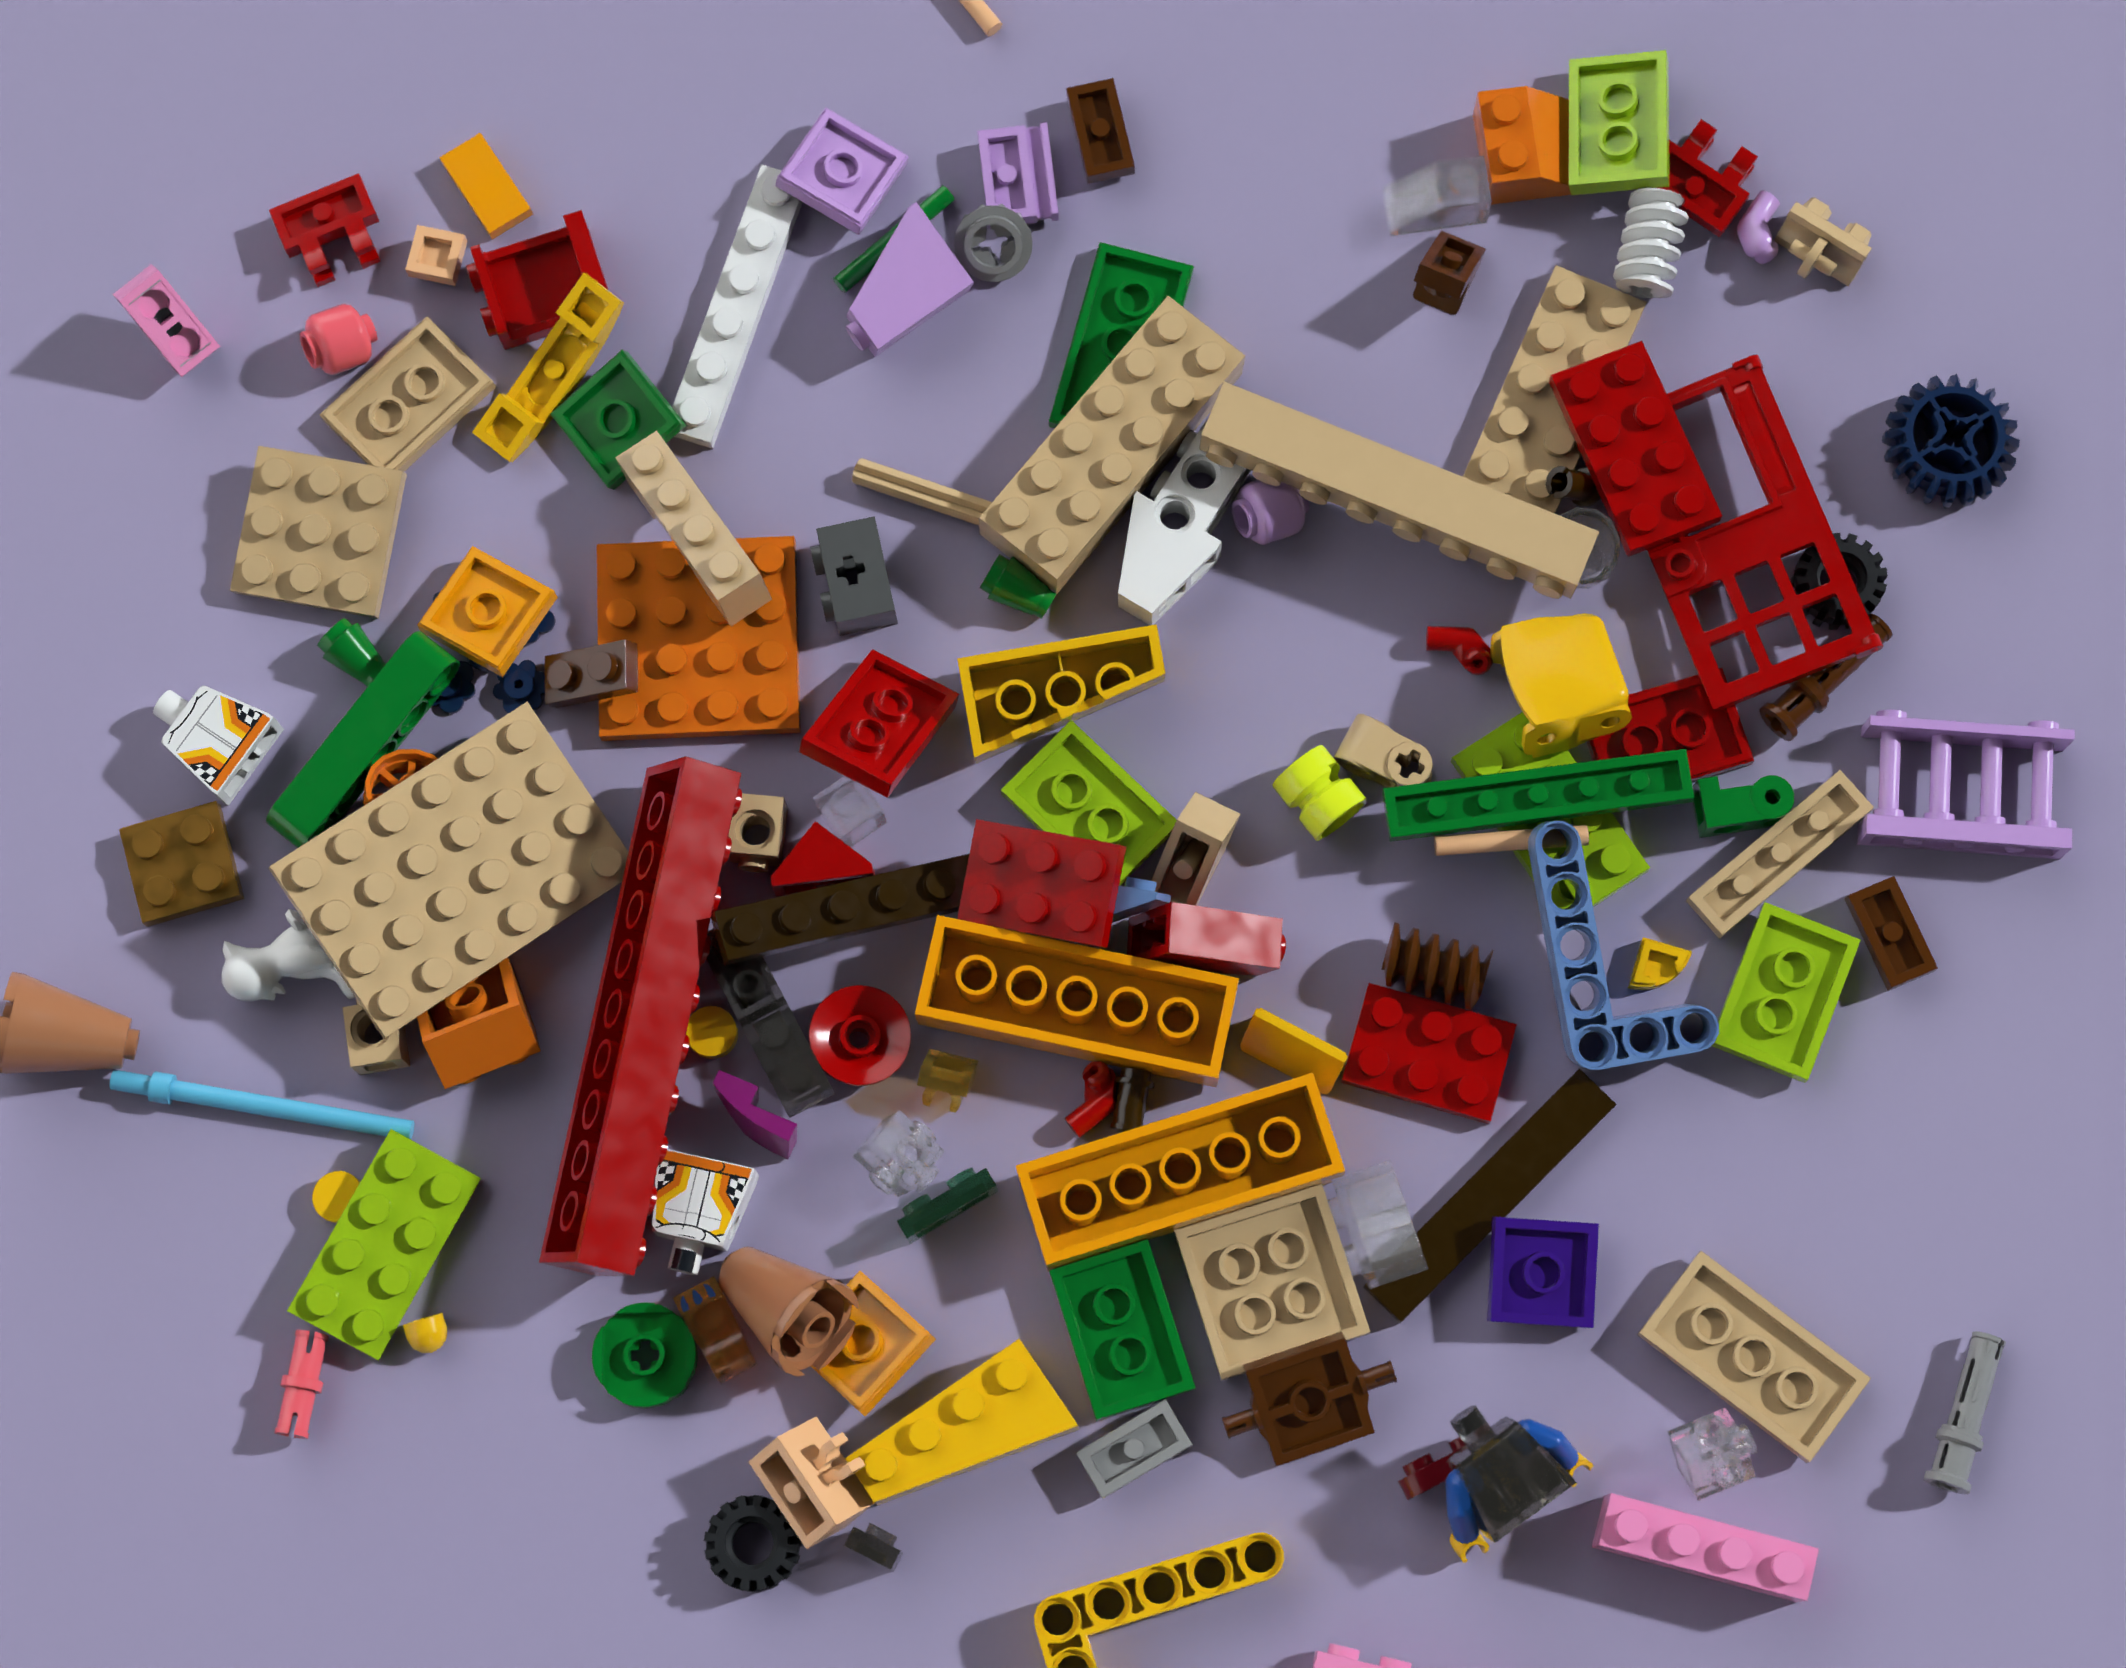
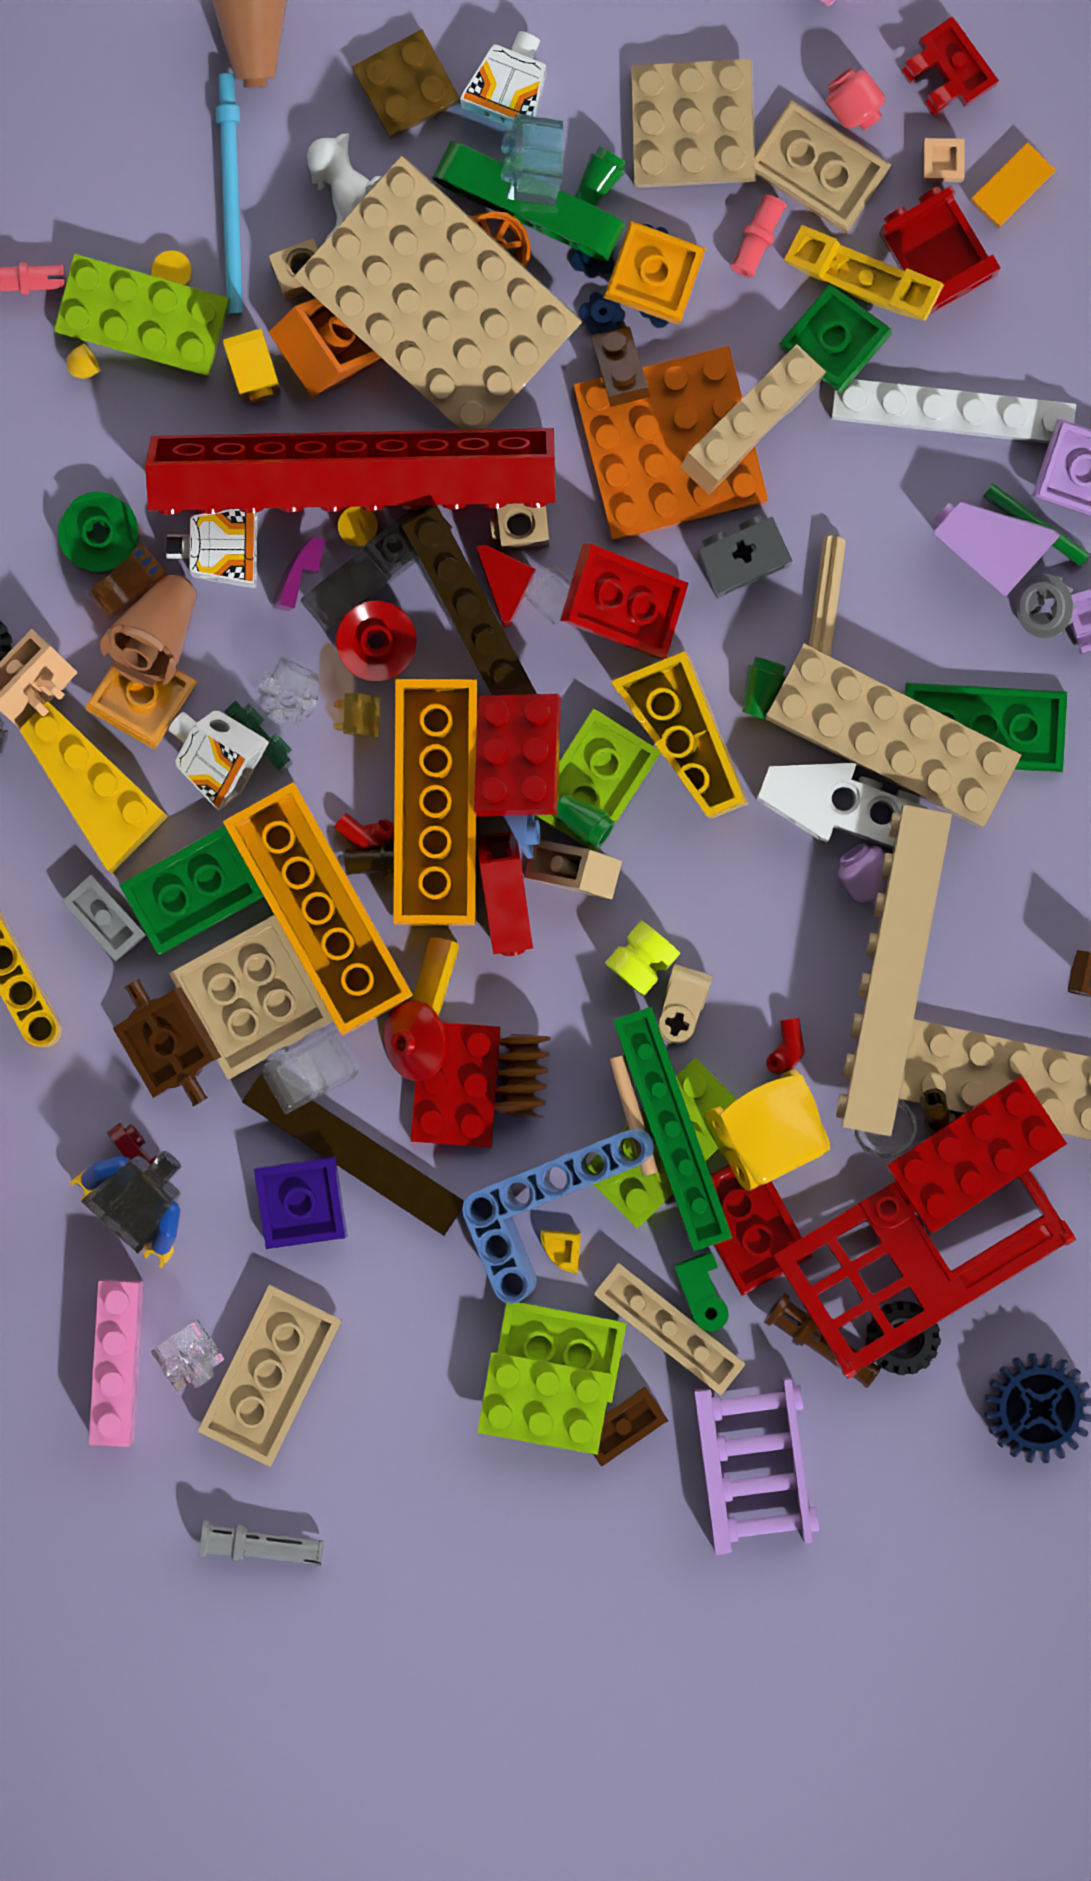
camera: 75 degrees right, 10 degrees up
(315, 716) = (533, 159): none -> clear light blue brick
(473, 484) = (758, 236): none -> coral pin
(482, 1116) = (252, 366): none -> yellow slope
(958, 1259) = (217, 755): none -> white torso
(1139, 821) = (585, 821): none -> green cone
(1367, 1071) = (415, 1040): none -> red dish
(1848, 1019) = (544, 1403): none -> lime plate

